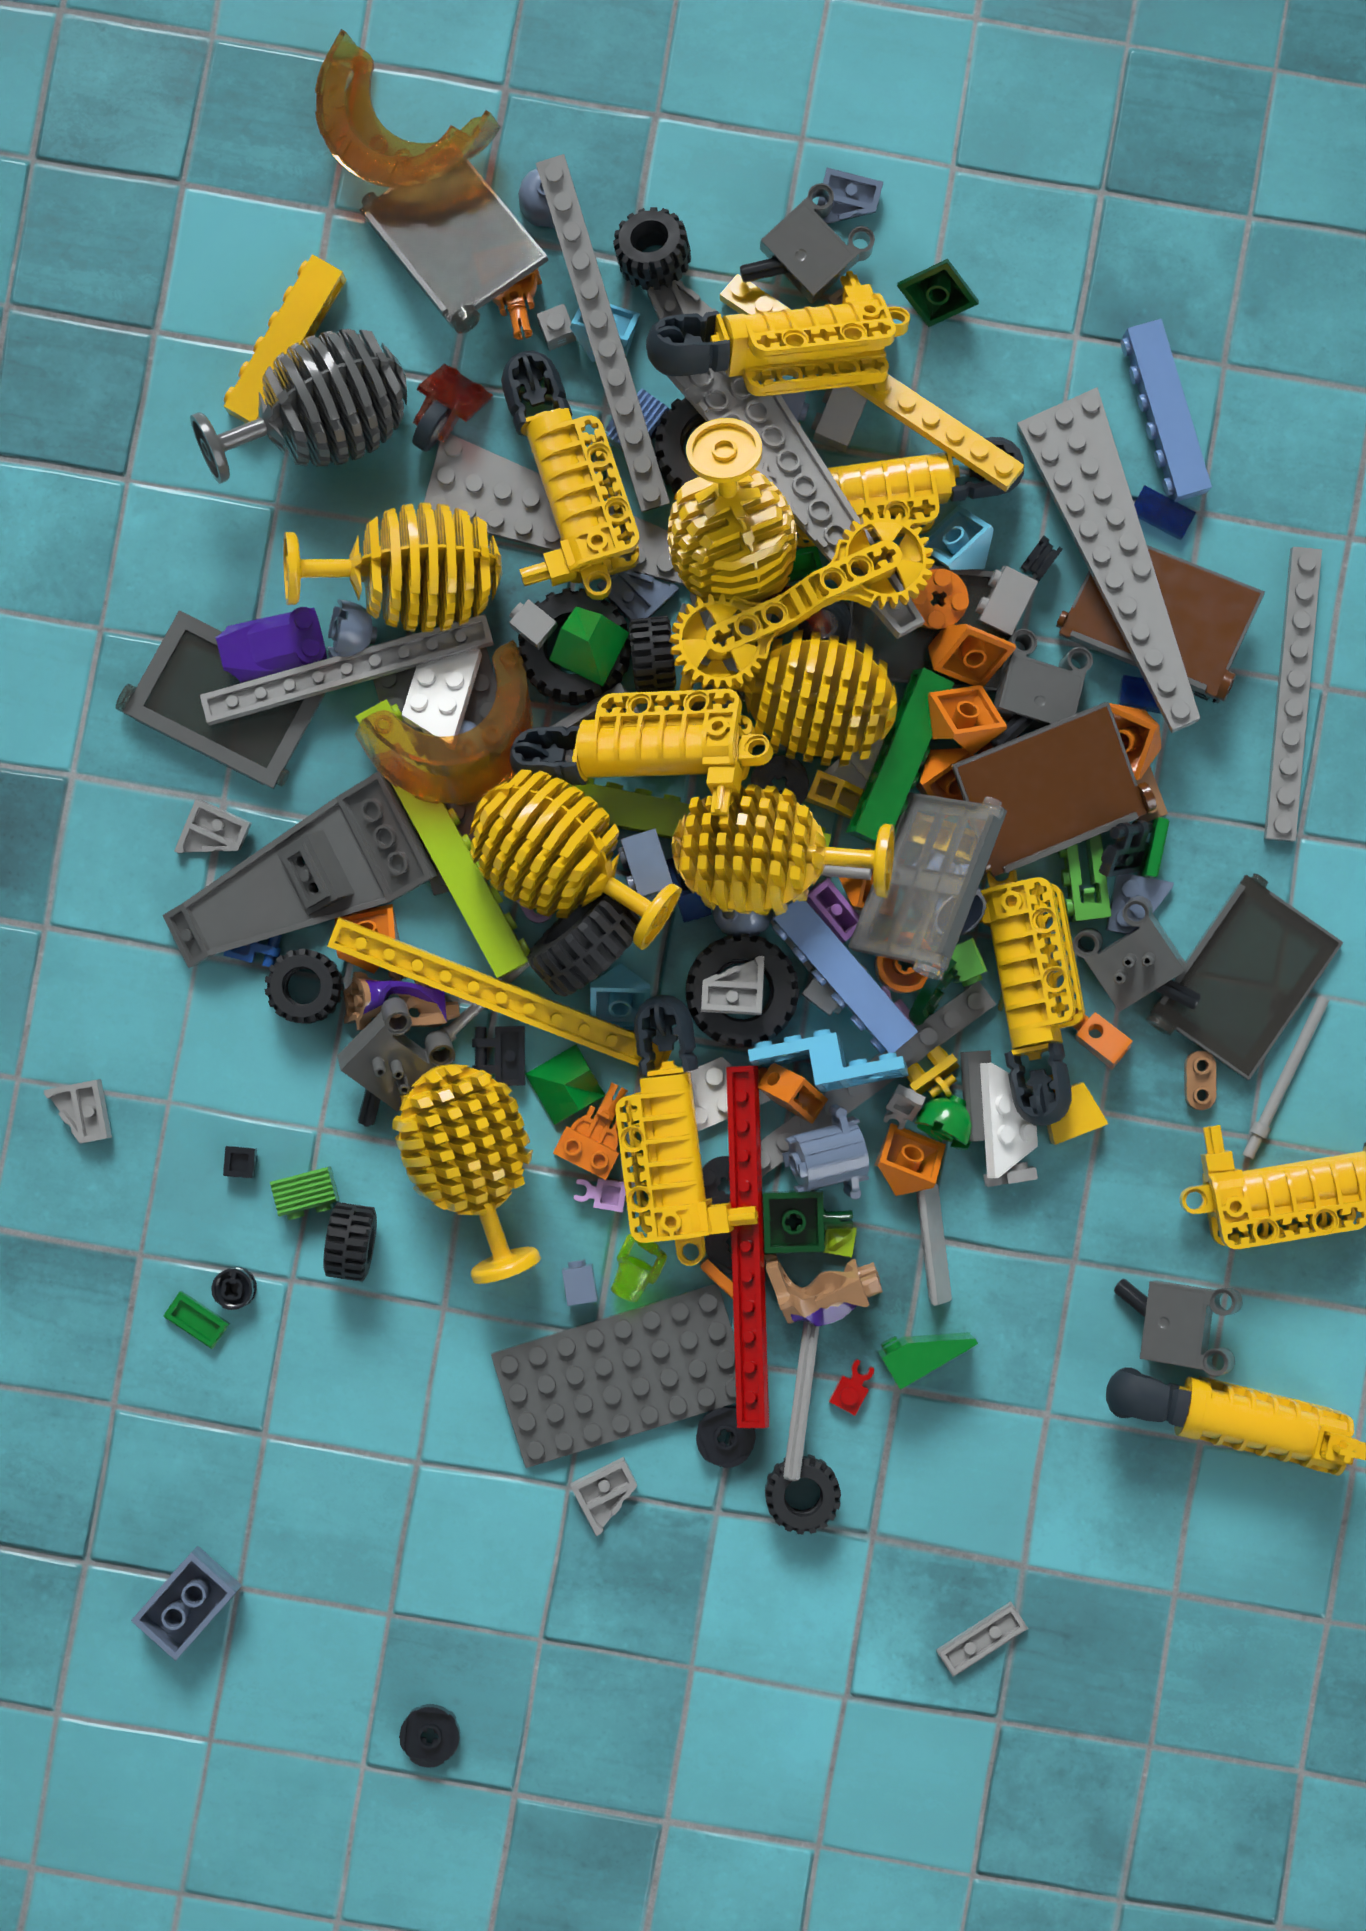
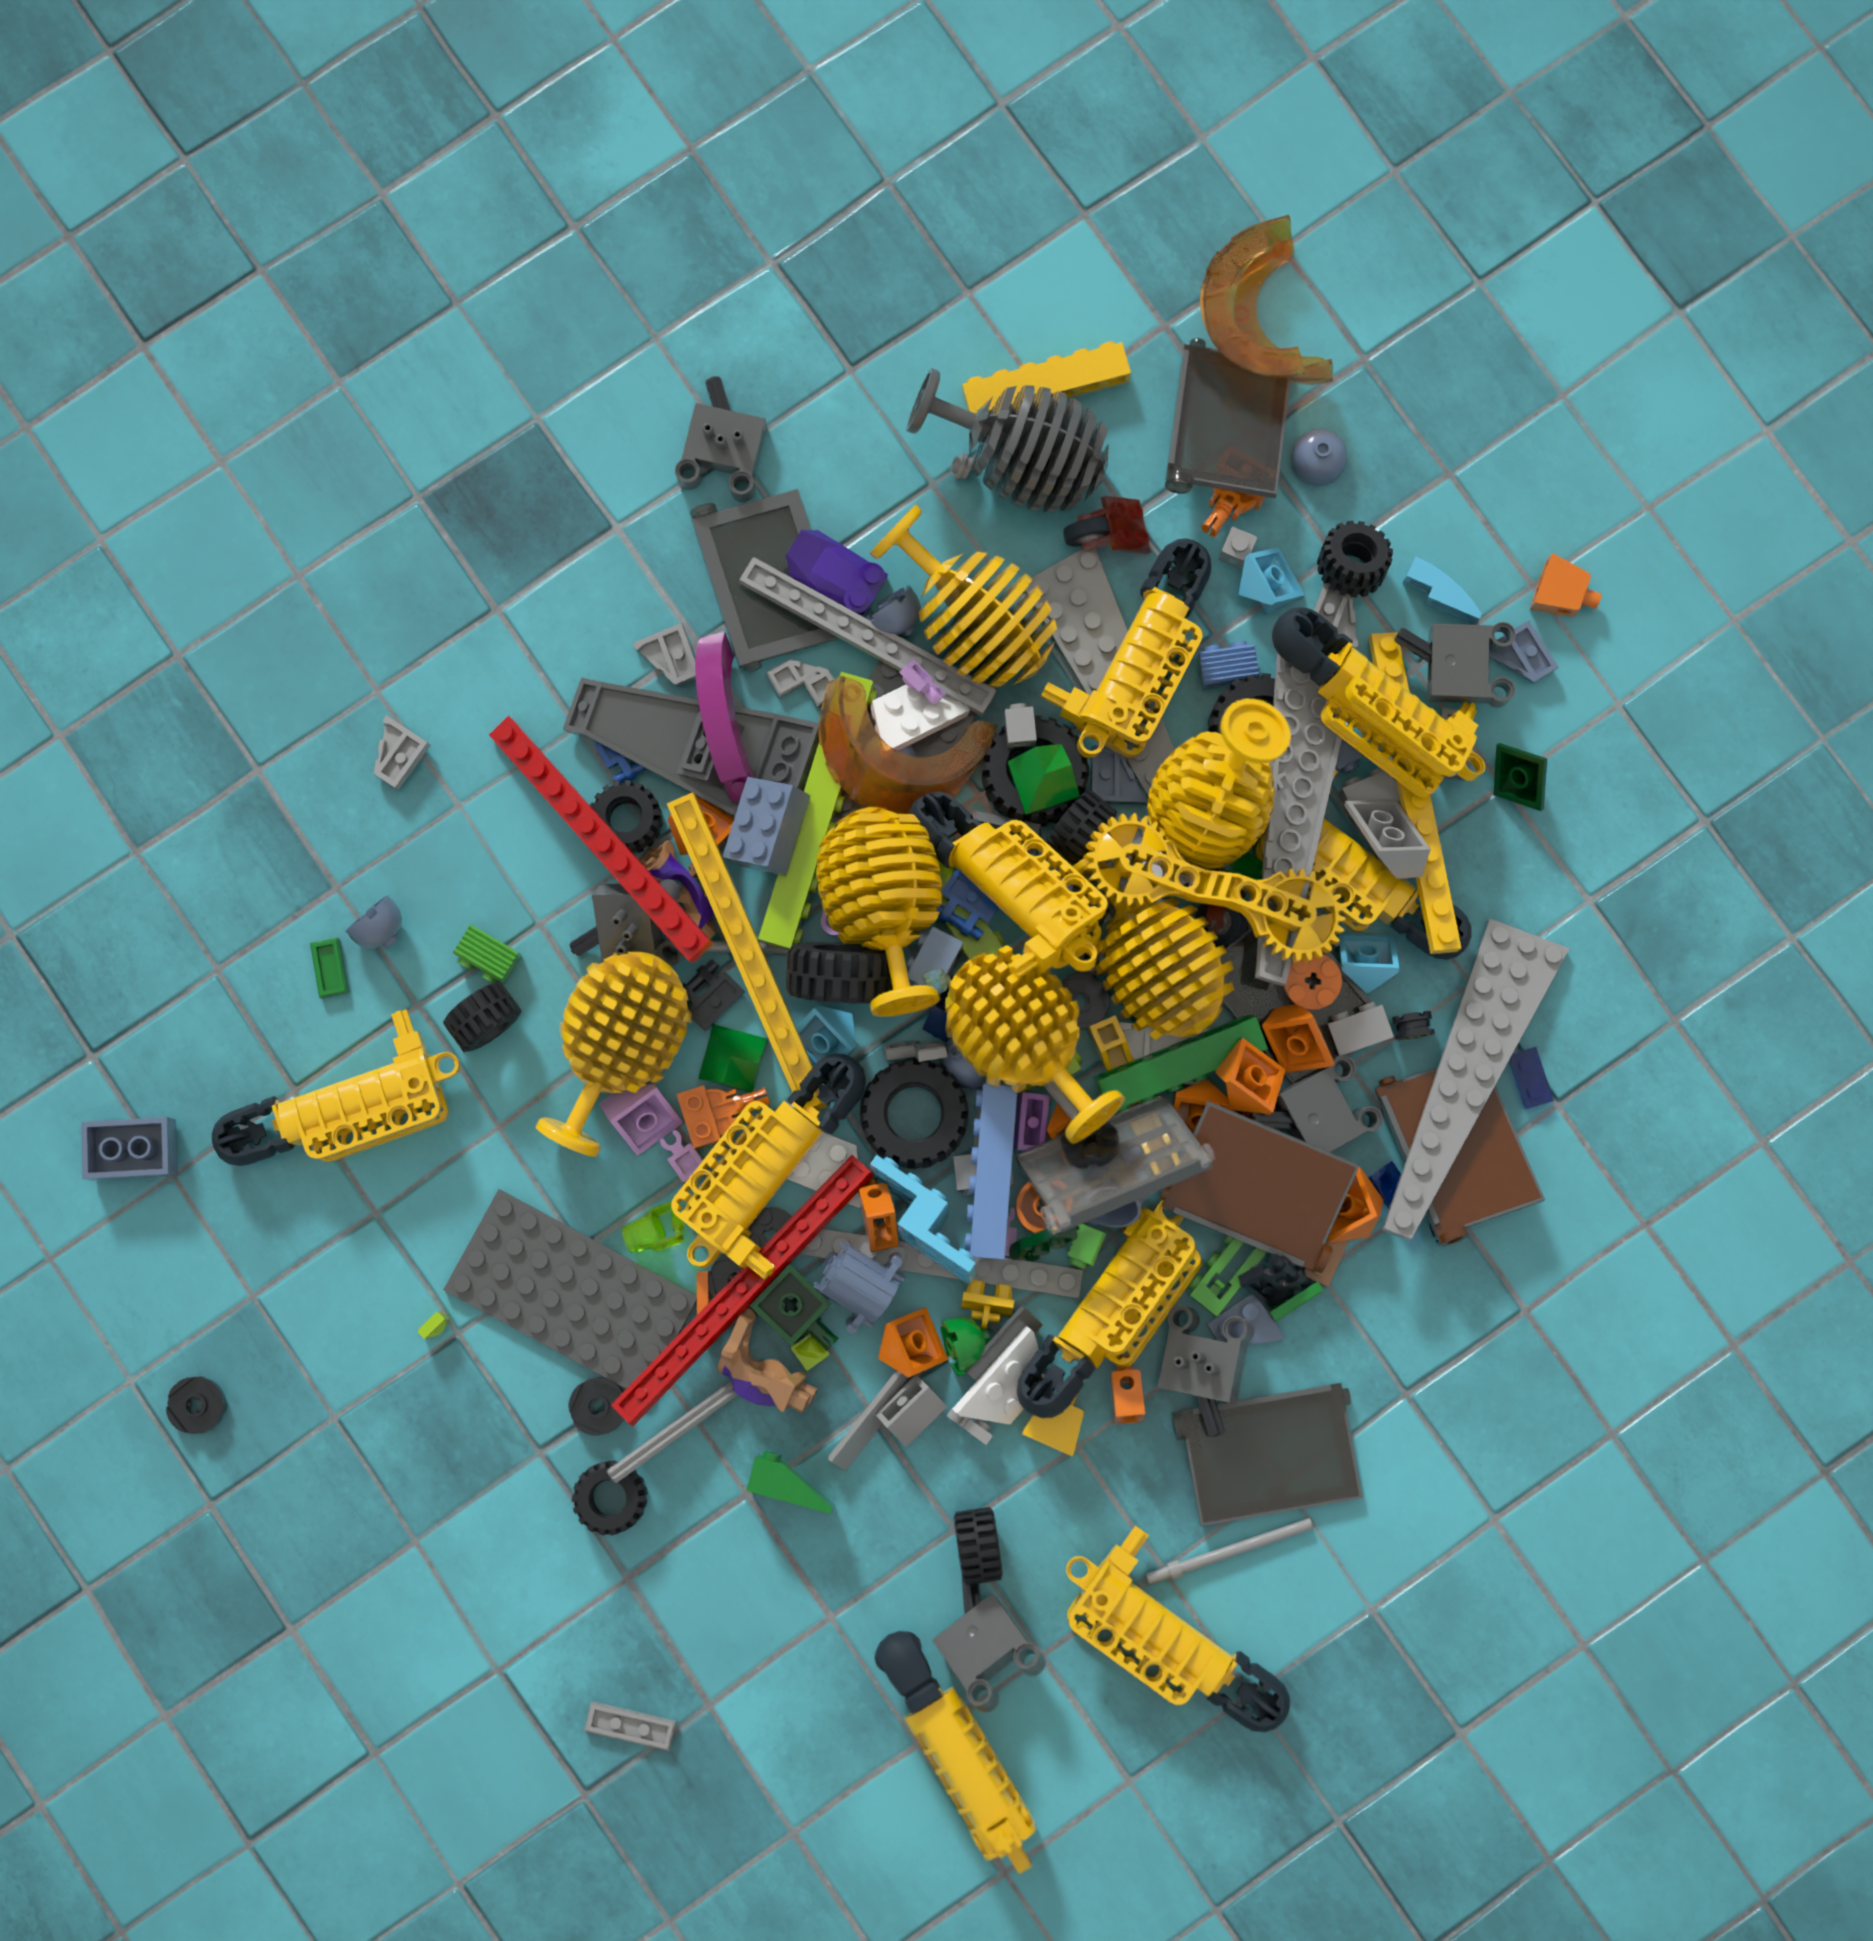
camera: 50 degrees right, 5 degrees down
(86, 631) = (722, 442): none -> dark grey piece
(200, 1253) = (377, 925): none -> sand blue cylinder
(234, 1288) = (375, 971): black wheel -> none
(239, 1162) = (465, 891): black plate -> none
(285, 470) = (961, 466): none -> light grey plate
(291, 837) = (717, 712): none -> magenta arch
(305, 1022) = (601, 840): none -> red plate
(316, 1409) = (346, 1108): none -> yellow piece
(319, 753) = (795, 674): none -> light grey tile
(418, 663) = (919, 679): none -> lavender plate
(418, 888) = (766, 826): none -> sand blue brick
(543, 1197) = (641, 1116): none -> lavender slope
(546, 1501) = (434, 1325): none -> lime tile
(579, 1283) = (606, 1201): sand blue brick -> none
(602, 332) = (1262, 582): light grey plate -> none
(603, 1492) = (478, 1360): light grey wing -> none
(621, 790) = (968, 896): none -> blue plate
(665, 876) = (937, 980): none -> clear light blue plate
(689, 946) = (907, 1049): none -> light grey tile
(736, 990) = (908, 1106): light grey wing -> none
(740, 209) = (1442, 591): none -> medium azure slope
(828, 118) = (1563, 589): none -> orange torso
(849, 1391) = (713, 1462): red plate -> none
(889, 431) = (1391, 836): none -> light grey slope
(903, 1105) = (945, 1302): light grey plate -> none
(912, 882) = (1102, 1152): none -> black plate
(957, 1209) = (911, 1410): none -> light grey brick
(1105, 1257) = (978, 1546): none -> black tyre
(1166, 411) = (1601, 1011): medium blue brick -> none
(1200, 1080) = (1167, 1492): medium nougat plate -> none
(1292, 694) = (1497, 1292): light grey plate -> none

